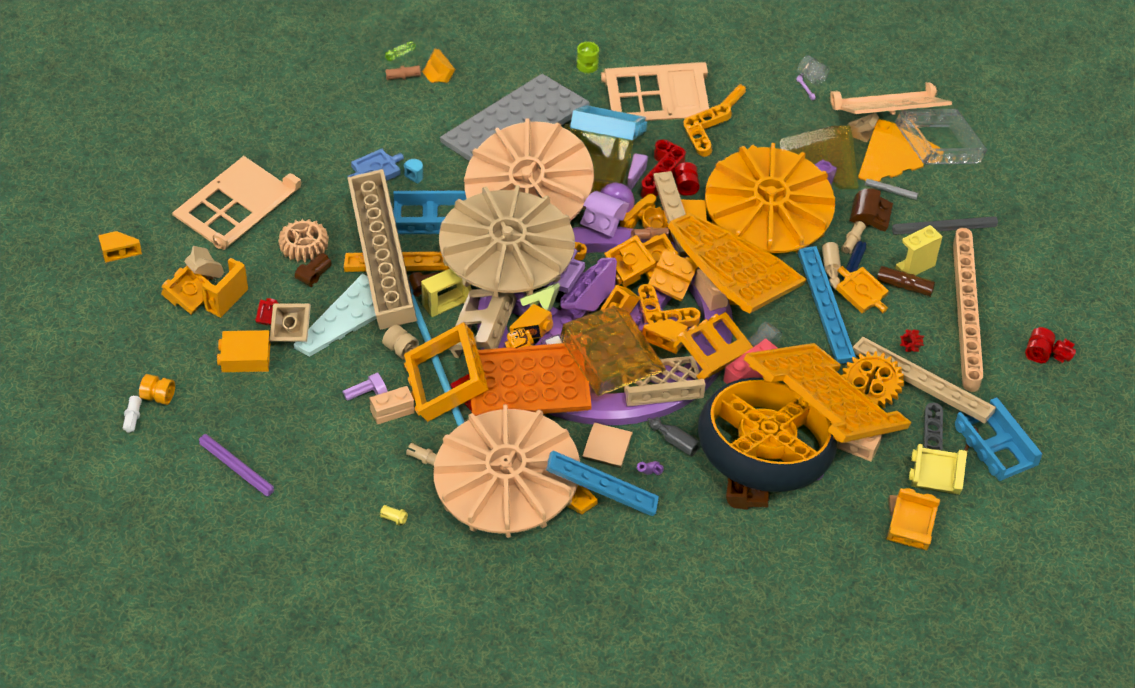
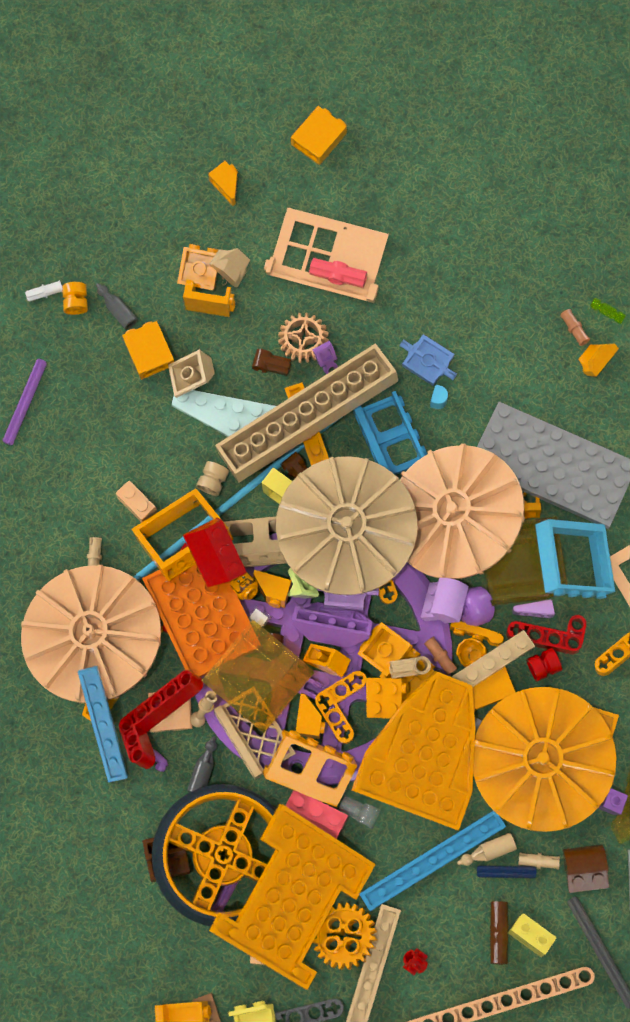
camera: 75 degrees right, 25 degrees up
(118, 171) = (319, 135): none -> light orange brick
(186, 362) = (117, 308): none -> dark grey wheel
(258, 196) = (338, 272): none -> coral piece
(265, 310) = (206, 344): red bracket -> none
(332, 226) = (325, 356): none -> medium lavender plate
(373, 383) = (157, 476): lavender piece -> none
(395, 515) = (20, 556): light yellow pin -> none
(484, 335) = (214, 553): none -> red slope
(610, 443) = (151, 712): none -> red beam
(621, 398) = (205, 706): none -> tan pin
(657, 239) = (407, 667): none -> tan piece
(862, 289) = (465, 891): light orange plate -> none

